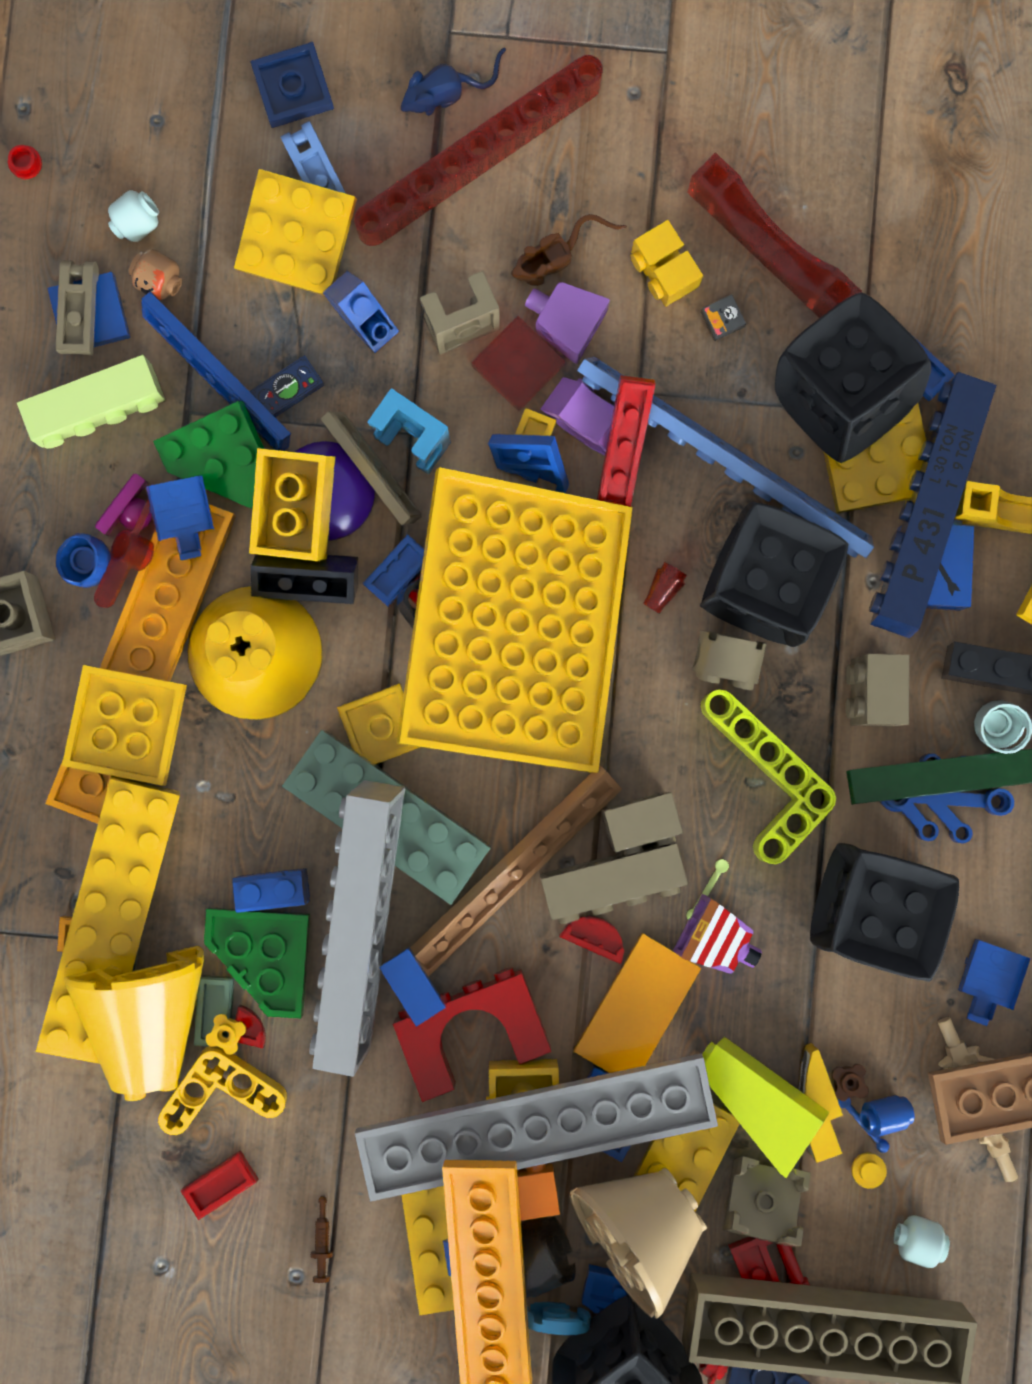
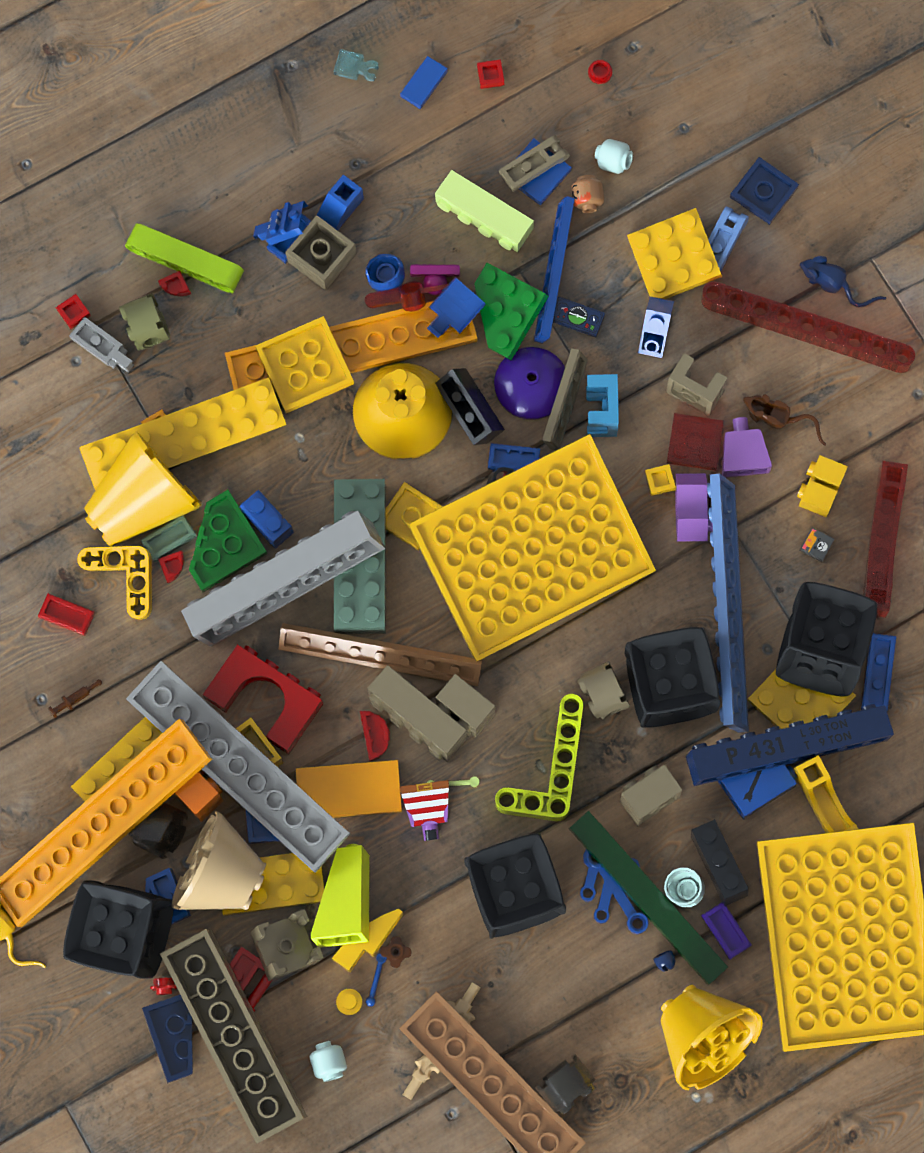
camera: 60 degrees right, 10 degrees down
(235, 1031) = (157, 558): yellow plate -> none
(291, 504) = (506, 367): yellow brick -> none
(412, 986) = (268, 639): blue tile -> none
(530, 458) = (640, 488): blue wing -> none
(557, 1319) = (128, 865): dark azure tile -> none
(626, 439) = (689, 534): red tile -> none
(664, 587) = (621, 624): clear red cone -> none
(886, 1115) = (391, 986): blue brick -> none
(993, 979) = (523, 996): blue piece -> none

